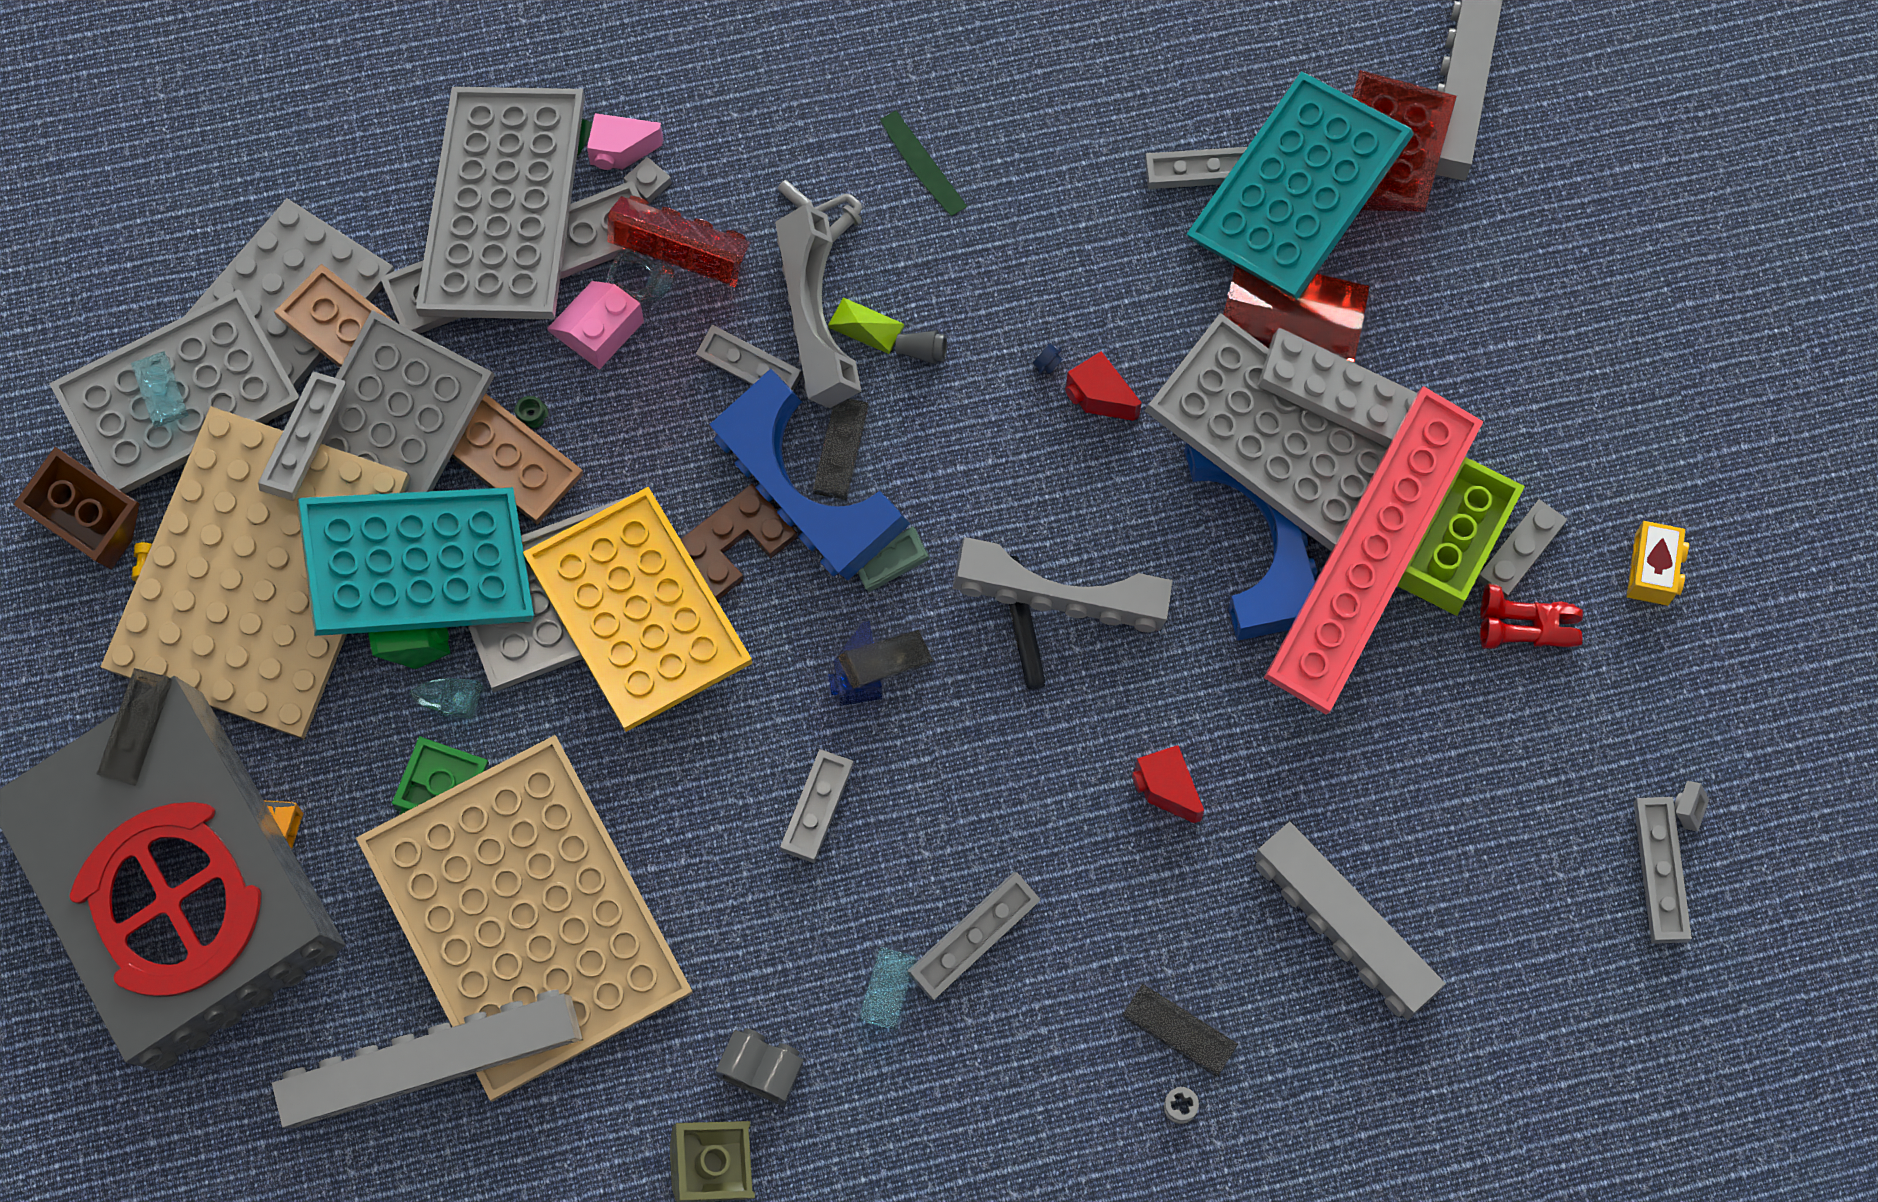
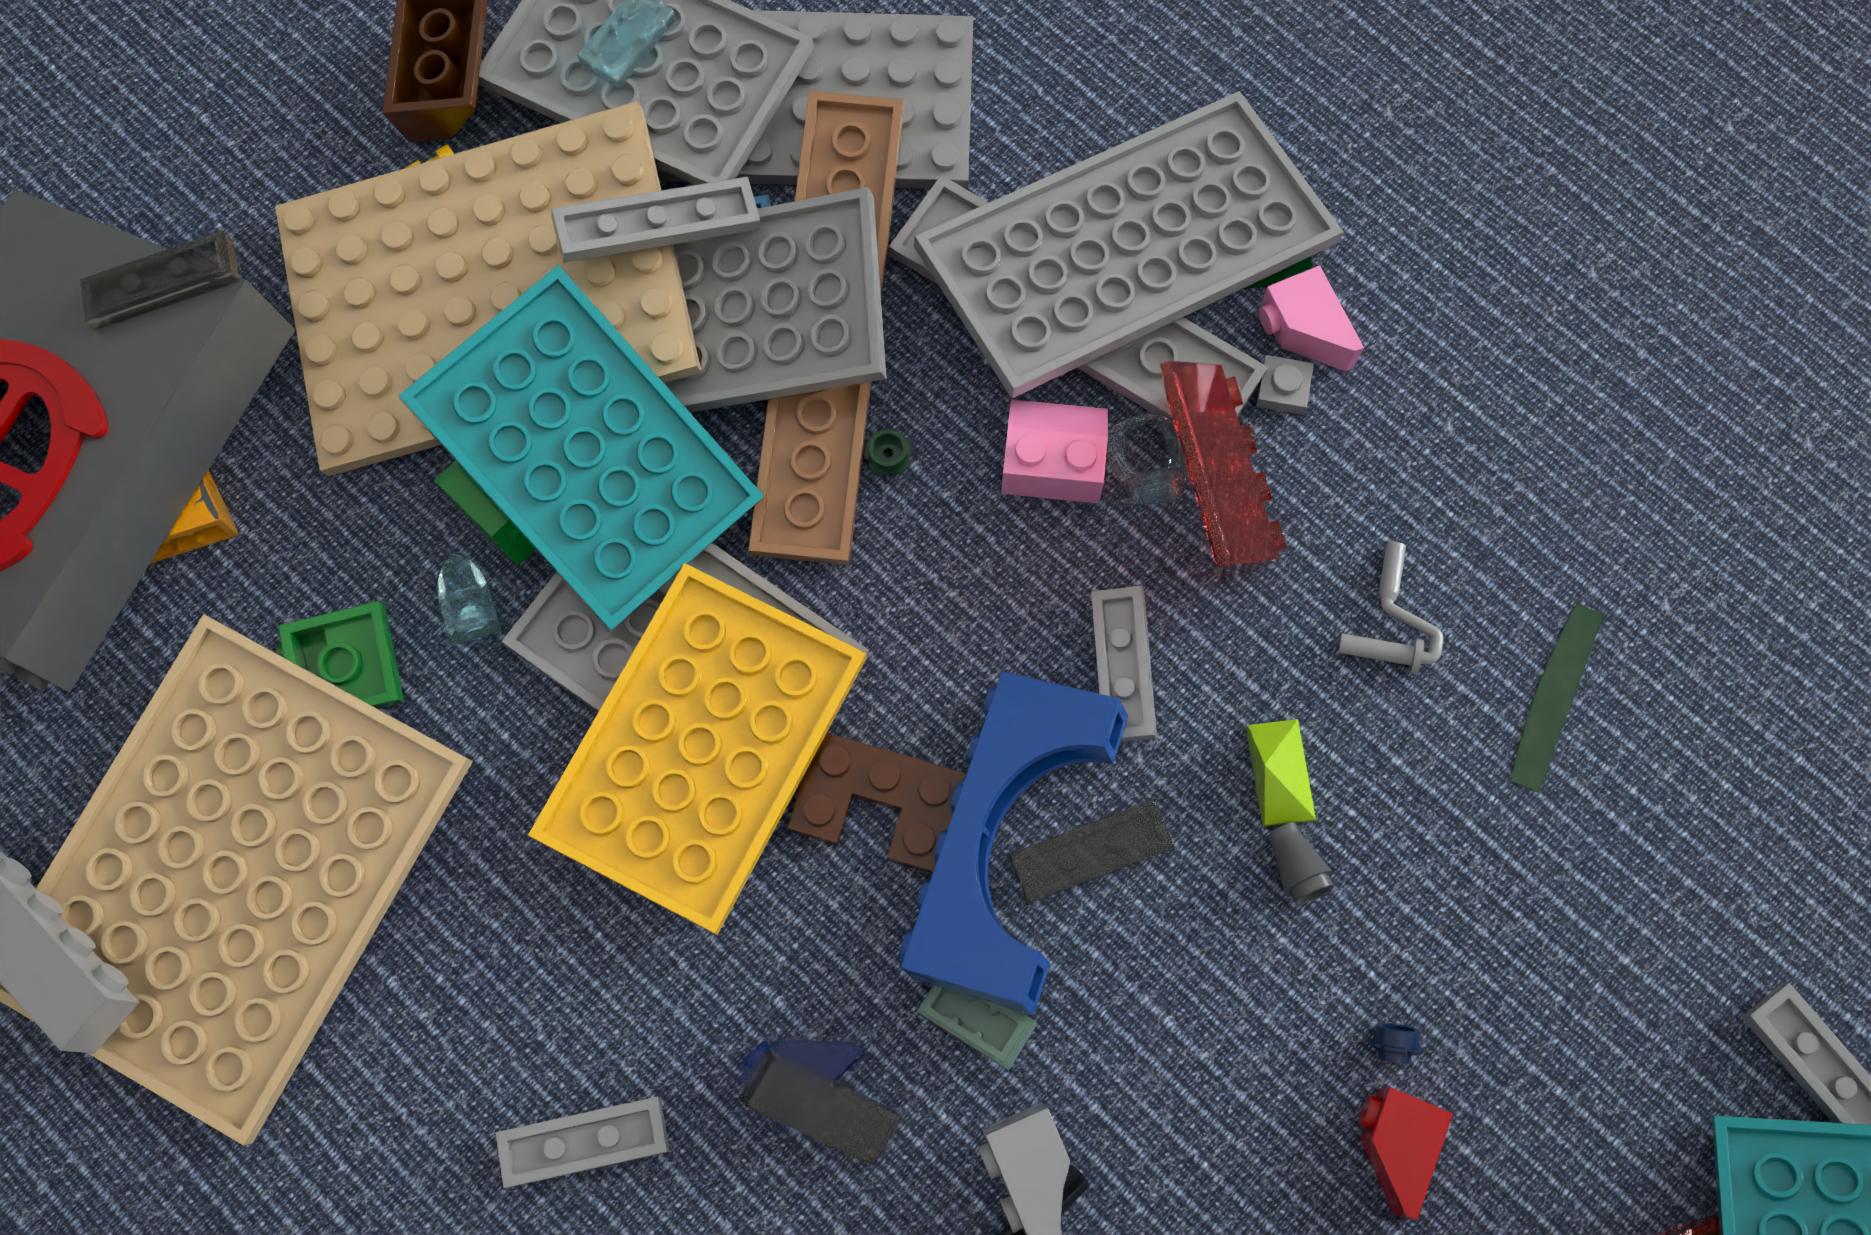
camera: 60 degrees right, 5 degrees up
(804, 248) = (1324, 629): light grey arch -> none

